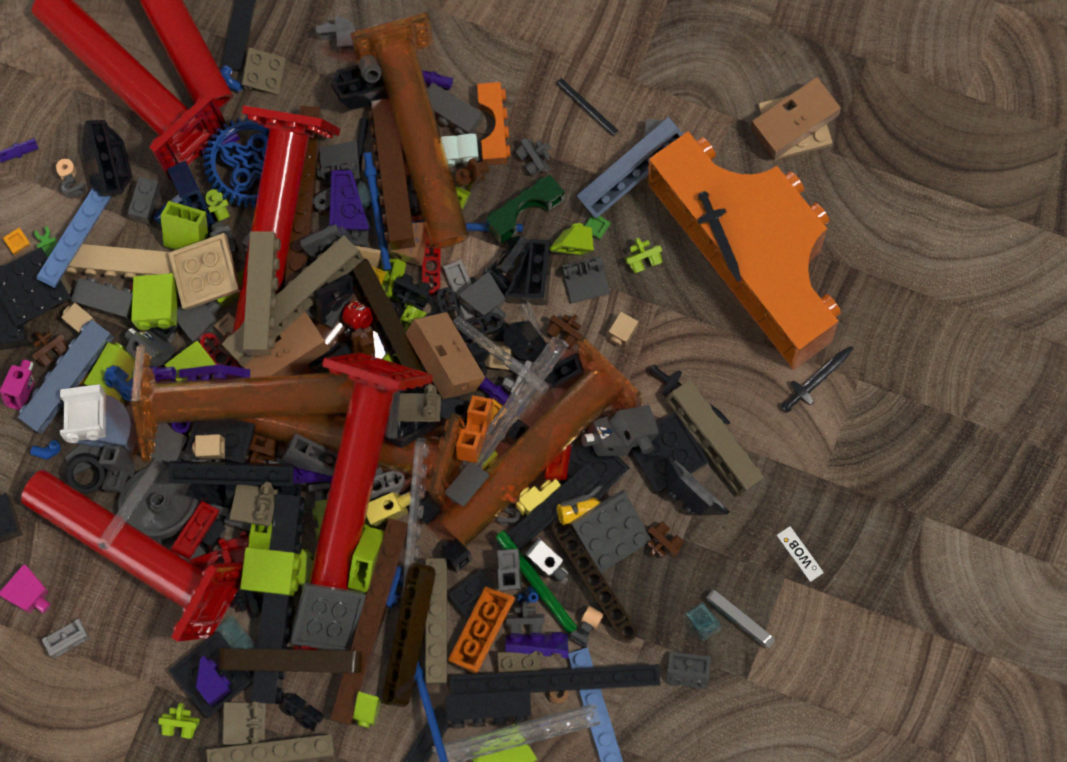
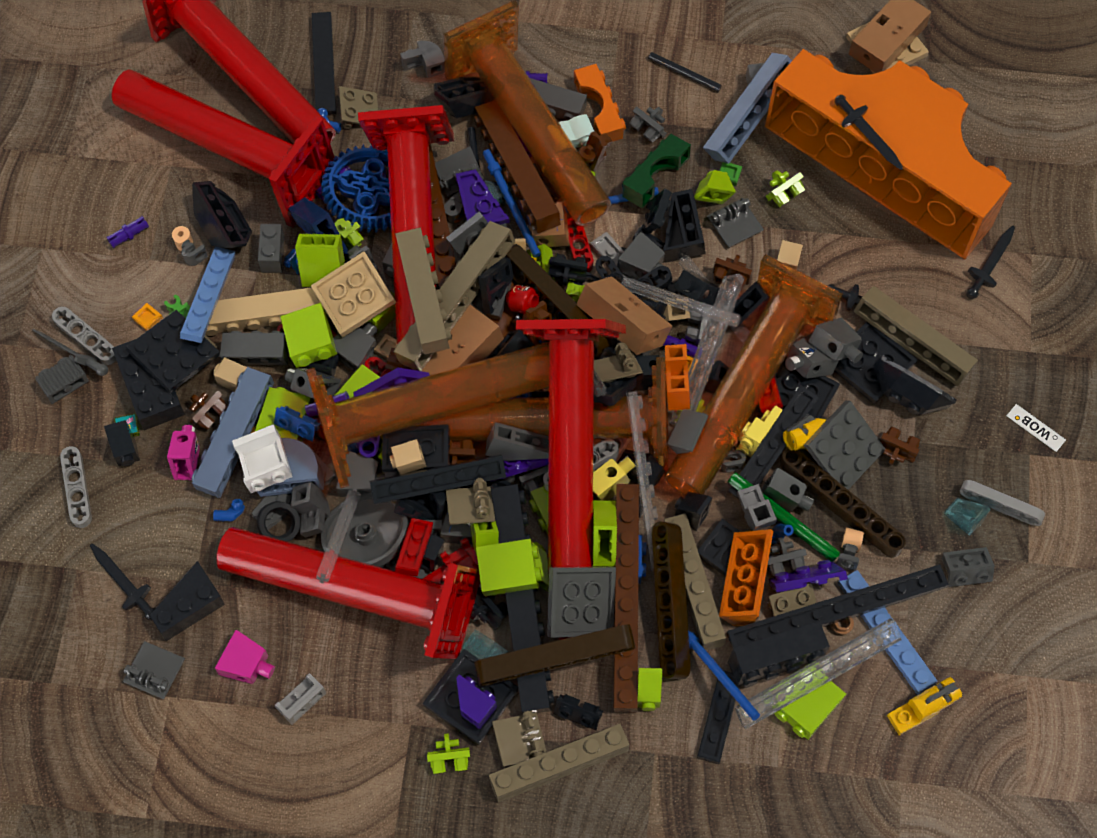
camera: 20 degrees left, 10 degrees down
(370, 68) = (467, 73): dark grey brick -> none

